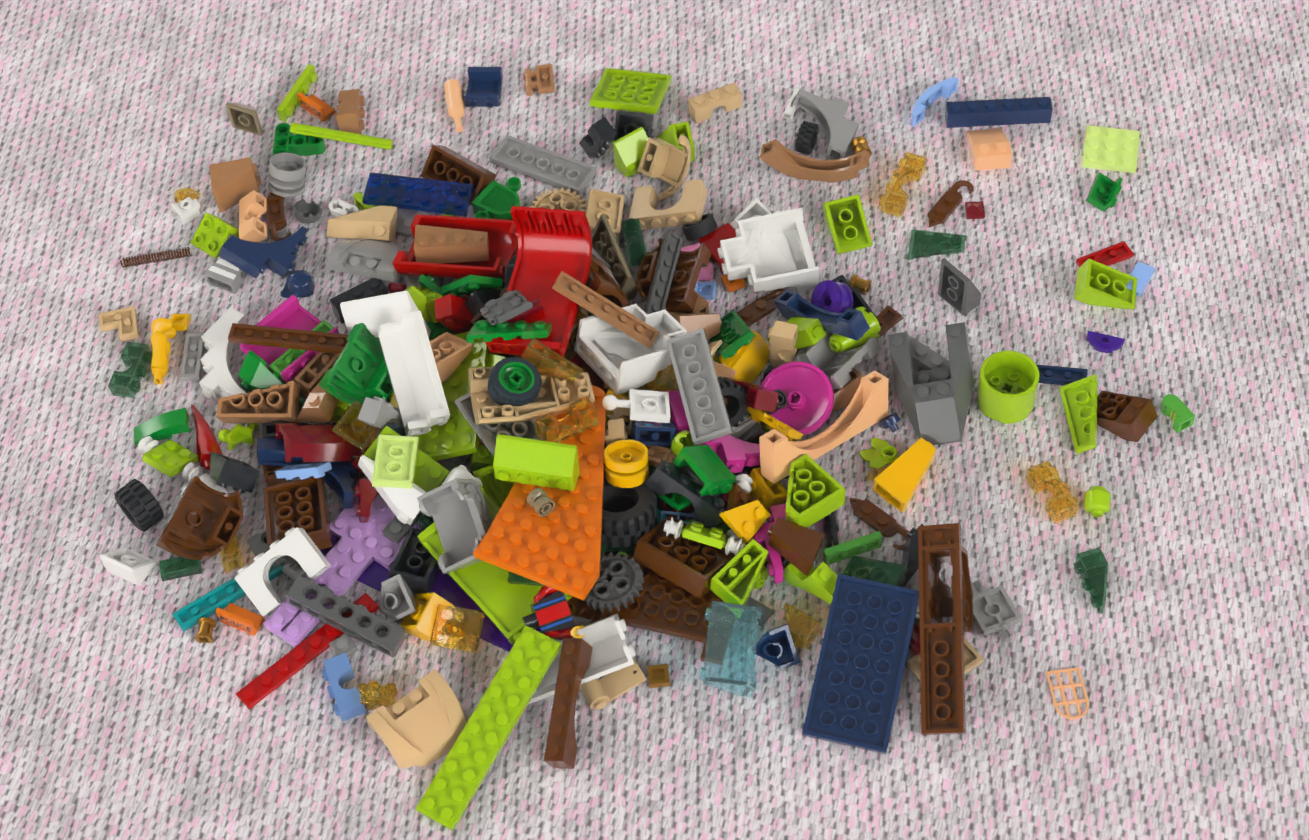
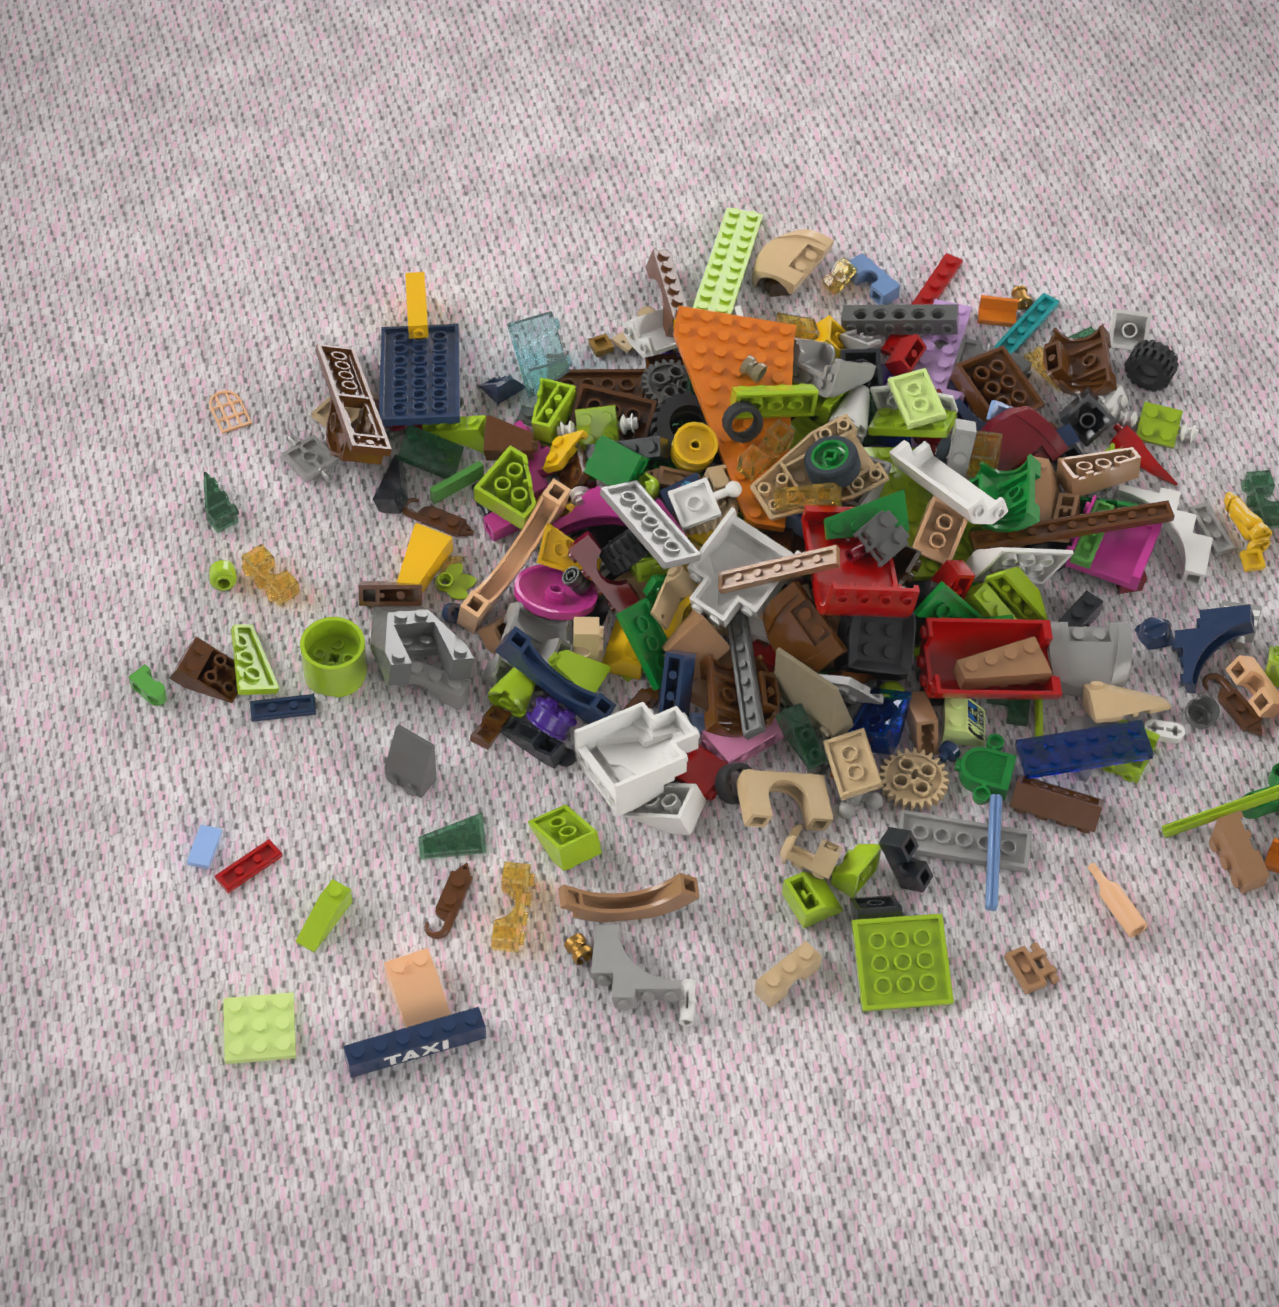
camera: 155 degrees right, 0 degrees up
(163, 426) = (1187, 453): green slope -> none
(255, 578) = (982, 333): white arch -> none
(287, 174) = (1258, 729): light grey wheel -> none
(362, 576) = (905, 355): none -> red brick
(484, 87) = (1095, 936): dark blue panel -> none
(527, 144) = (993, 852): none -> medium blue axle
(585, 443) = (750, 433): none -> black tyre
(718, 297) = (677, 681): none -> dark blue brick
(801, 626) = (485, 403): clear yellow slope -> none
(806, 137) = (650, 939): black tyre -> none
(843, 751) = (416, 305): none -> yellow slope
(860, 284) = (528, 763): pearl gold bush -> none
(944, 88) = (494, 1068): light blue slope -> none
(952, 445) = (389, 594): none -> reddish brown slope
(974, 210) = (416, 897): dark red tile -> none
(1047, 208) = (324, 915): none -> lime slope
(1103, 342) = (235, 756): dark purple plate -> none
(1104, 192) = (259, 951): green bracket -> none
(1104, 286) = (244, 817): lime slope -> none

